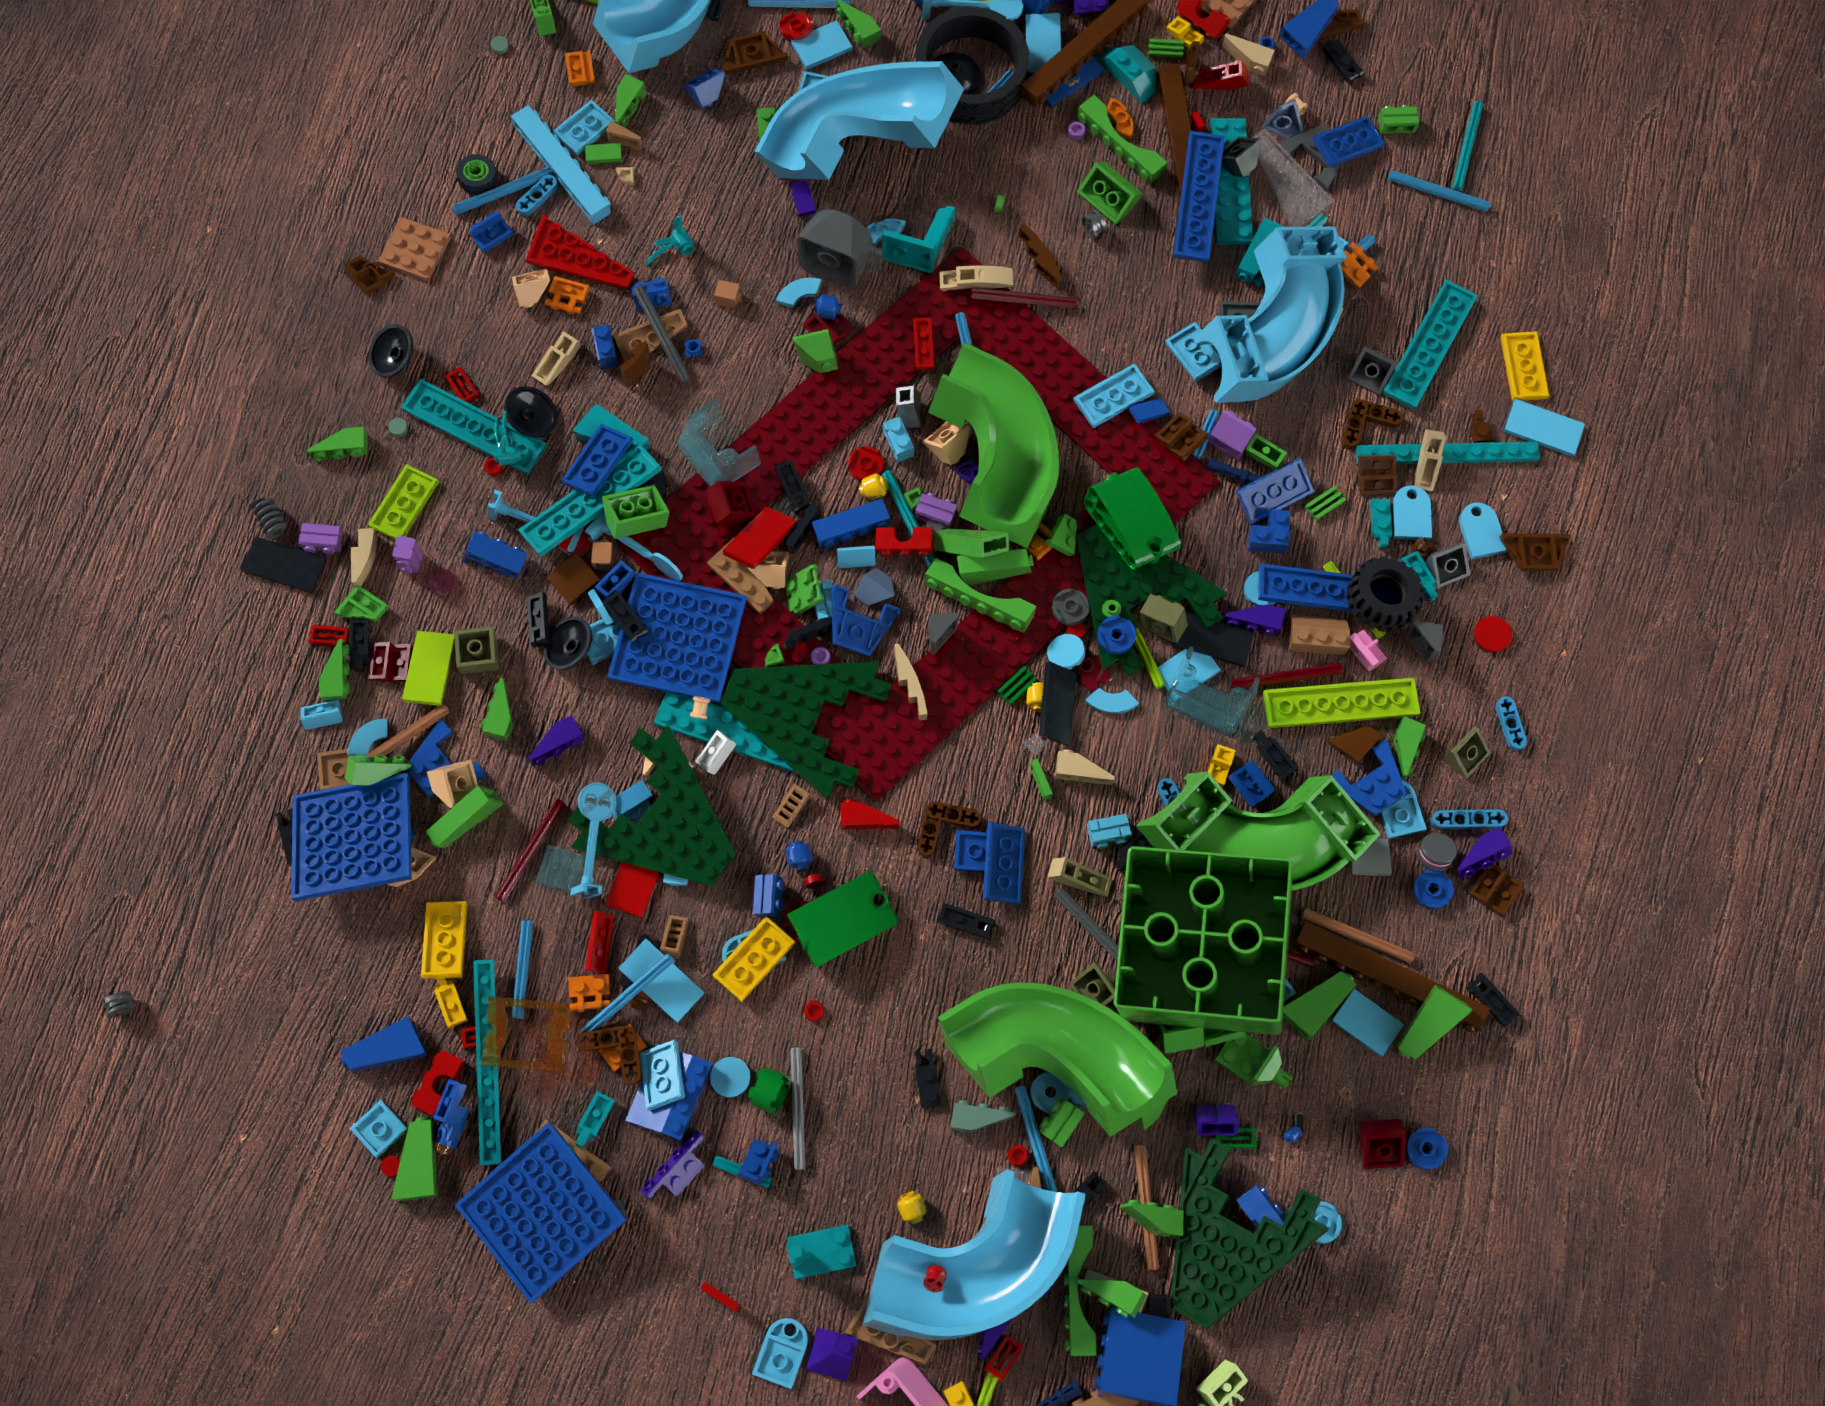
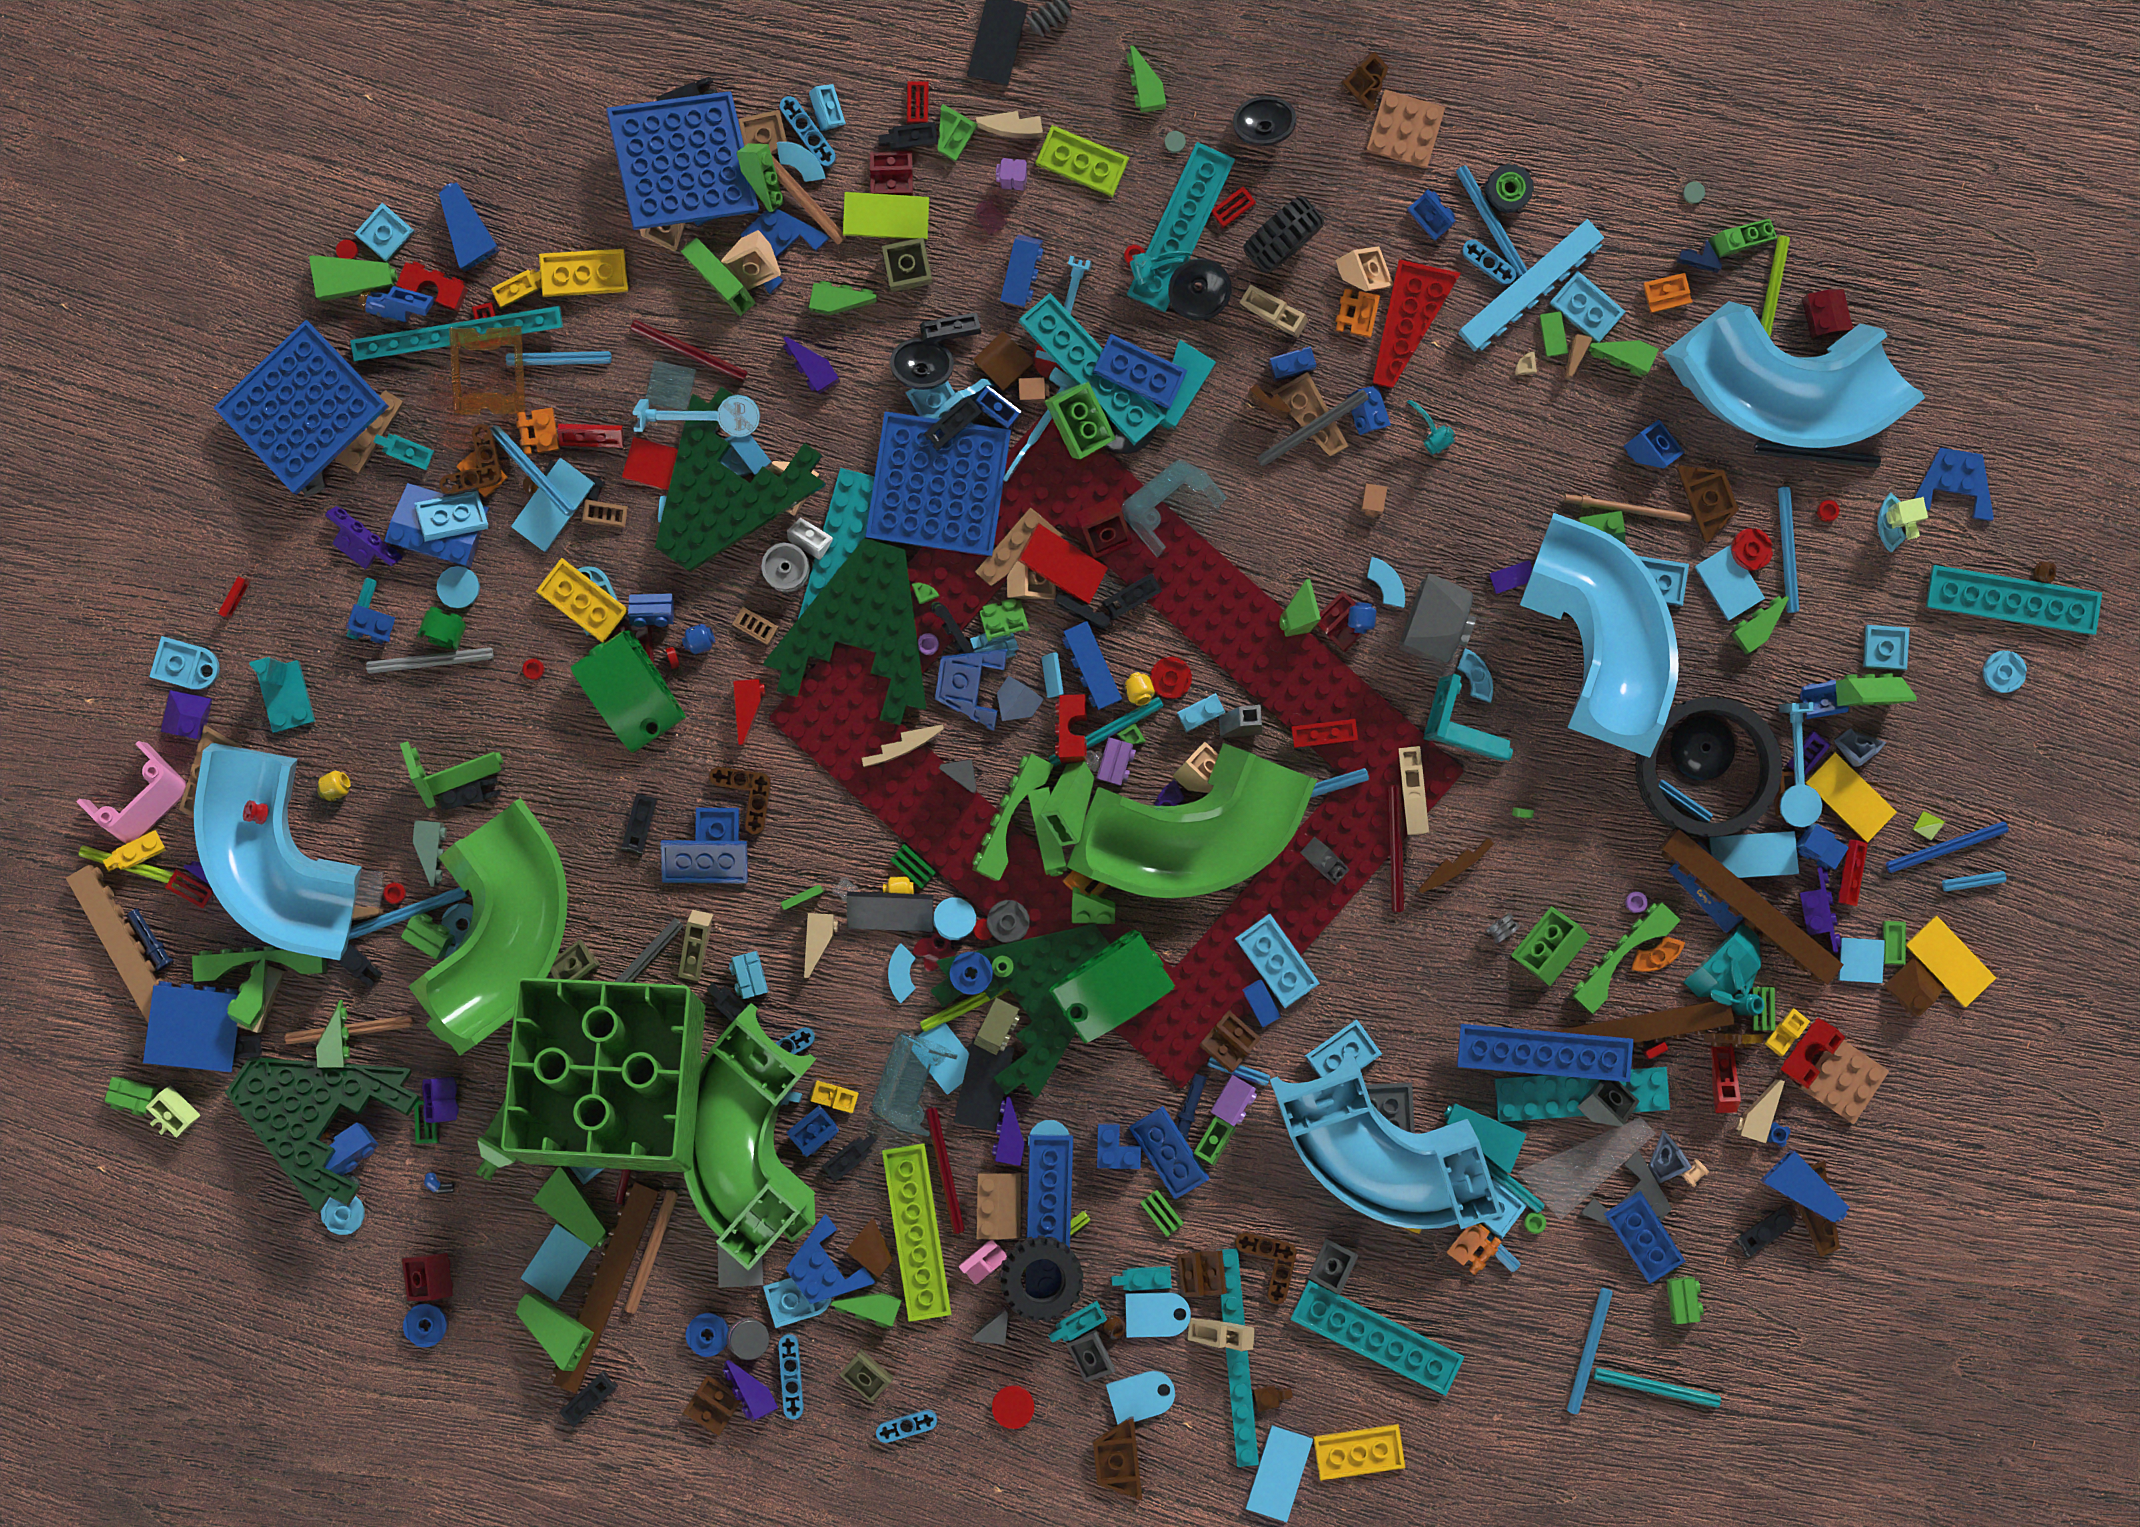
camera: 90 degrees right, 15 degrees up
(321, 538) = (1030, 76): medium lavender brick -> none
(333, 679) = (863, 115): bright green slope -> none
(339, 728) = (810, 130): none -> dark azure beam
(493, 335) = (1283, 234): none -> black tyre
(555, 40) = (1706, 260): none -> dark blue slope
(693, 344) = (1297, 471): blue plate -> none
(700, 707) = (855, 516): light nougat bush -> none
(740, 761) = (798, 570): none -> light grey wheel
(745, 138) = (1587, 502): none -> nougat bar
(915, 1108) = (450, 778): none -> bright green piece
(1031, 350) = (1325, 860): none -> flat silver slope
(1161, 57) = (1743, 1003): none -> teal plant
(1335, 220) = (1535, 1222): none -> bright green tile

